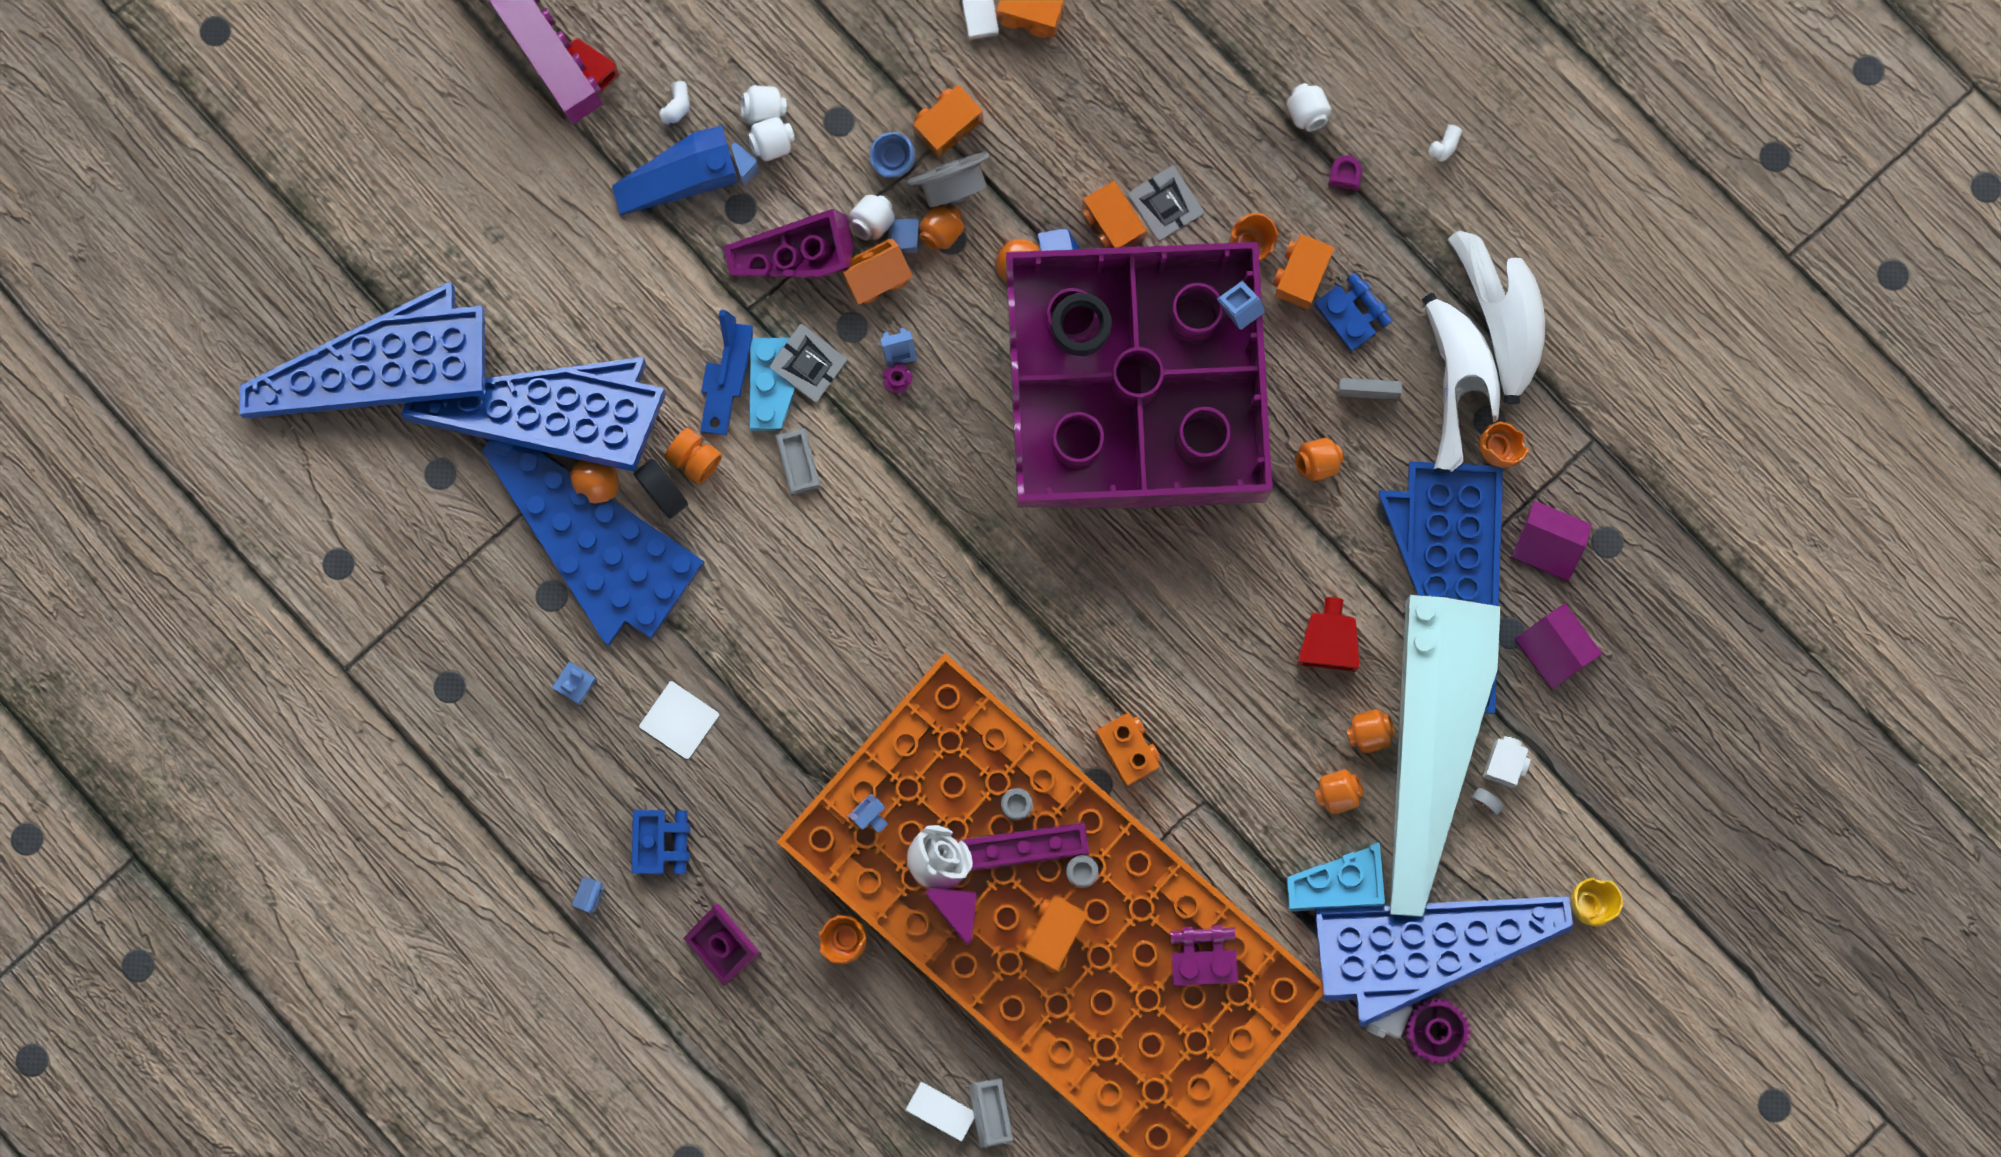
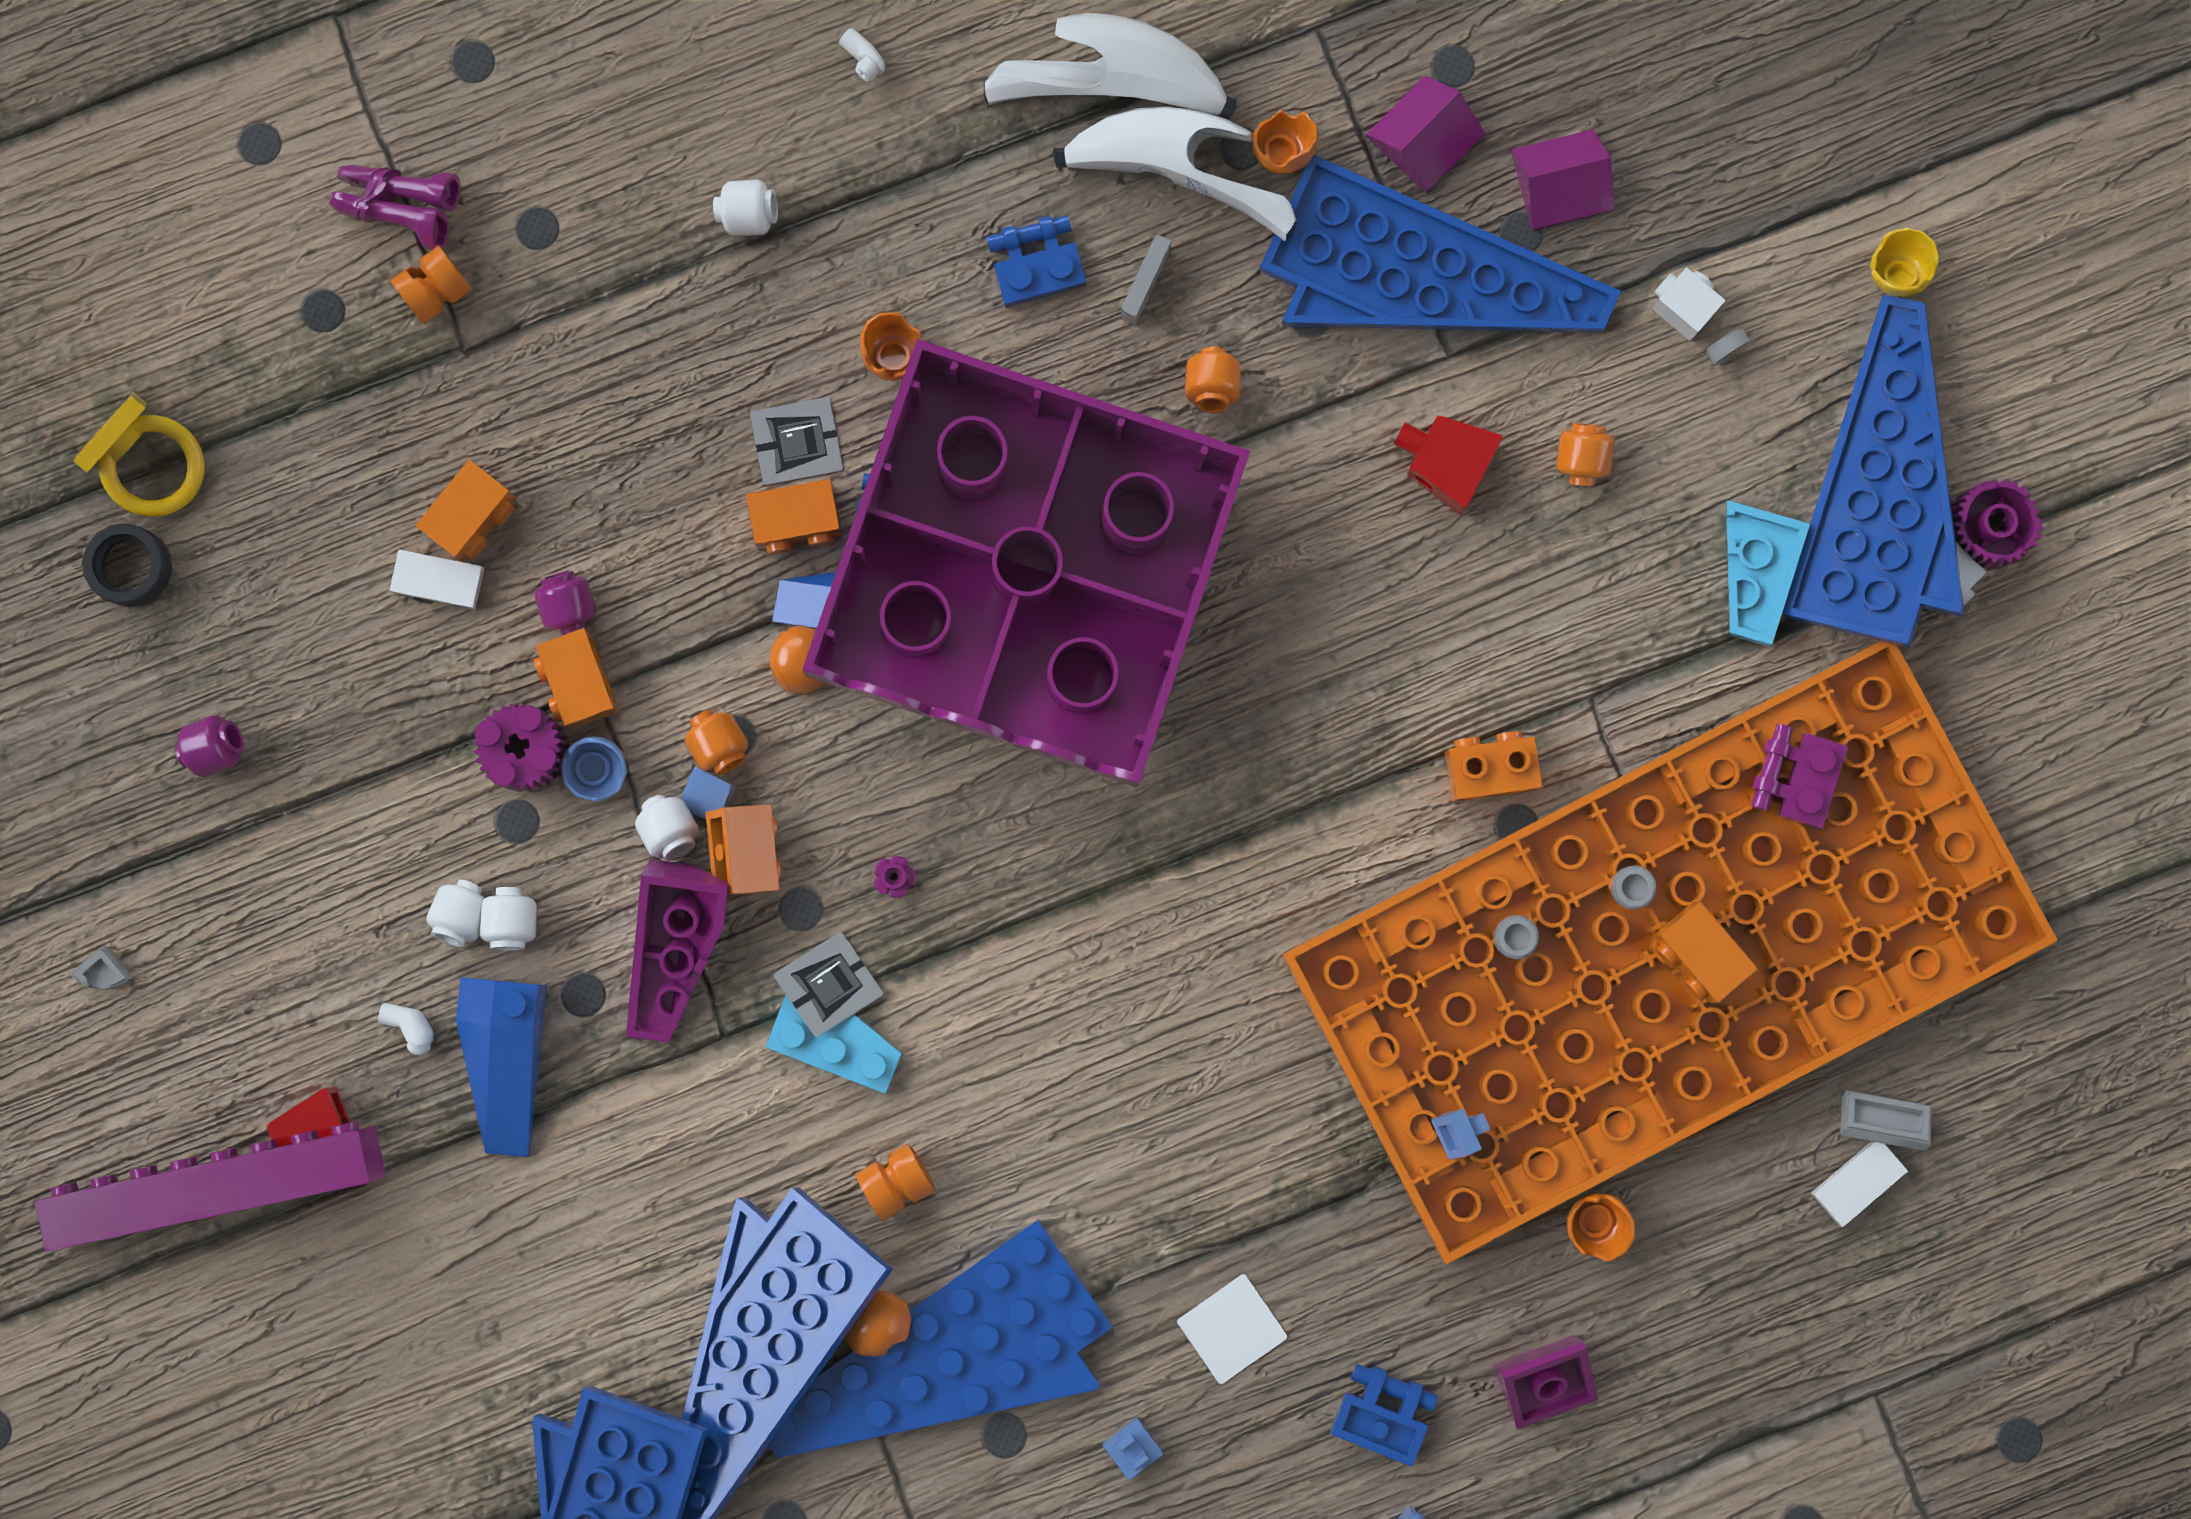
camera: 70 degrees left, 5 degrees up
(660, 488) = (924, 1241): black tyre -> none
(726, 379) = (808, 1100): blue piece -> none
(745, 163) = (528, 965): medium blue slope -> none
(798, 461) = (953, 1047): light grey tile -> none
(886, 86) = (499, 736): none -> magenta brick
(898, 348) = (855, 859): medium blue tile -> none
(938, 859) = (1556, 1064): white cylinder -> none
(952, 180) = (661, 703): light grey piece -> none
(957, 909) = (1631, 1066): magenta slope -> none
(996, 93) = (565, 602): none -> magenta head
(1027, 846) = (1574, 950): magenta tile -> none
(1092, 303) = (930, 577): black tyre -> none
(1241, 305) = (993, 392): medium blue slope -> none
(1303, 272) = (960, 301): orange brick -> none
(1339, 791) = (1646, 524): orange head -> none
(1346, 173) = (849, 196): magenta tile -> none
(1444, 694) = (1582, 348): light aqua wedge -> none

